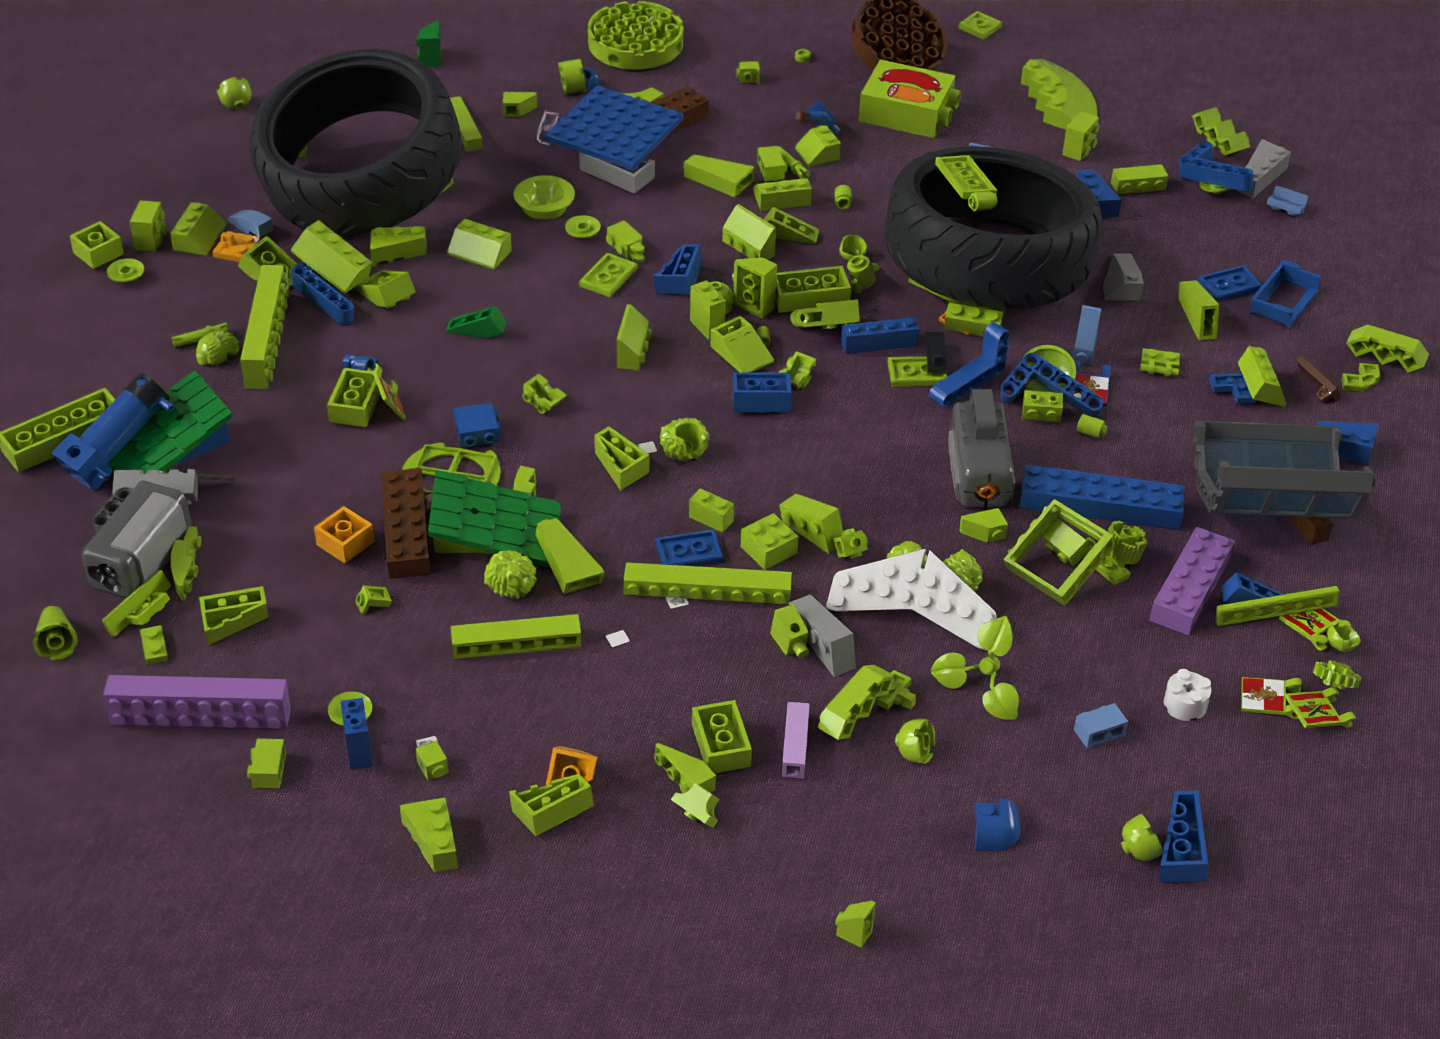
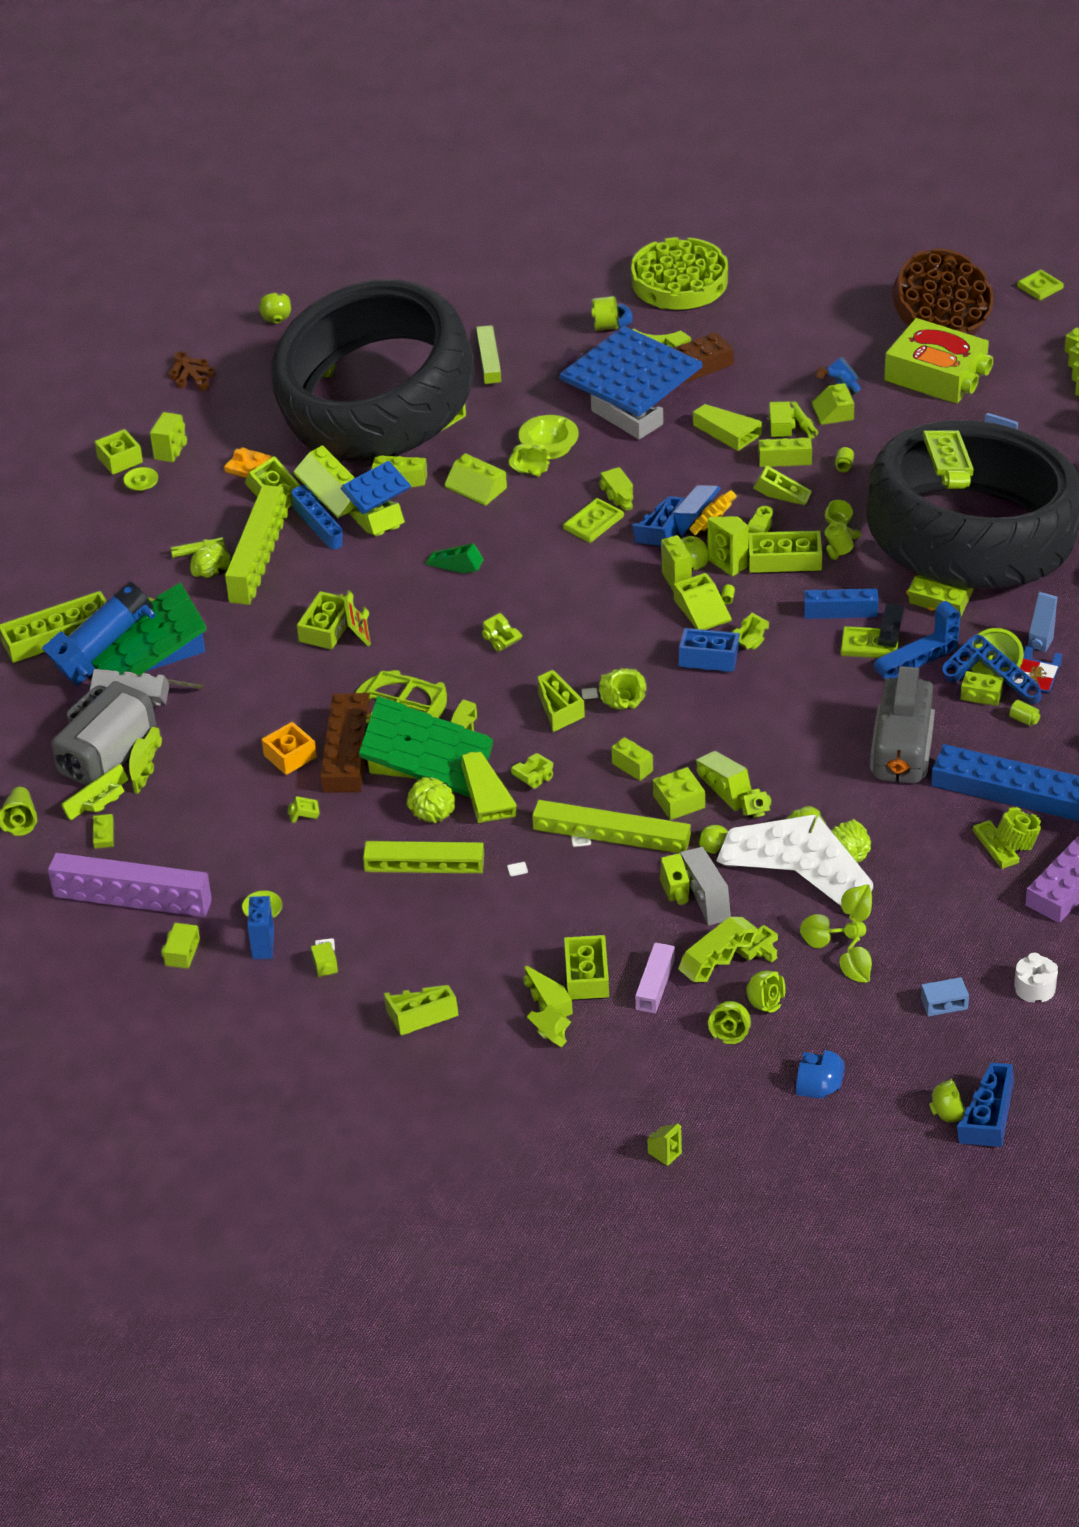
camera: 15 degrees right, 0 degrees up
(145, 150) = (182, 359): none -> reddish brown plant
(197, 229) = (214, 443): lime slope -> none
(232, 612) = (175, 809): lime wedge -> none
(252, 222) = (266, 440): medium blue slope -> none
(359, 363) = (338, 587): blue piece -> none
(380, 258) = (375, 487): none -> blue plate
(429, 45) = (472, 270): green slope -> none
(432, 831) = (311, 1020): lime wedge -> none
(477, 425) = (433, 657): blue brick -> none
(518, 103) = (546, 337): lime slope -> none
(531, 219) = (530, 459): none -> lime hair
(570, 762) = (444, 973): light orange slope -> none
(582, 226) = (579, 469): lime dish -> none
(612, 532) = (534, 771): none -> lime cylinder
(632, 339) = (598, 586): lime slope -> none
(690, 549) = (604, 793): blue tile -> none
(711, 252) = (694, 506): none -> slope
(730, 255) = (714, 509): none -> yellow gear
(748, 72) = (784, 320): lime brick -> none
(749, 234) = (746, 488): lime slope -> none
(780, 257) = (761, 520): none -> lime piece
(803, 55) = (846, 306): lime tile -> none
(817, 584) = (713, 838): none -> lime hair
(827, 314) = (793, 578): lime brick -> none
(889, 779) = (729, 1022): none -> lime cylinder
(984, 525) = (889, 799): lime slope -> none
(1065, 542) = (962, 822): lime brick -> none
(1083, 570) = (970, 849): lime window -> none

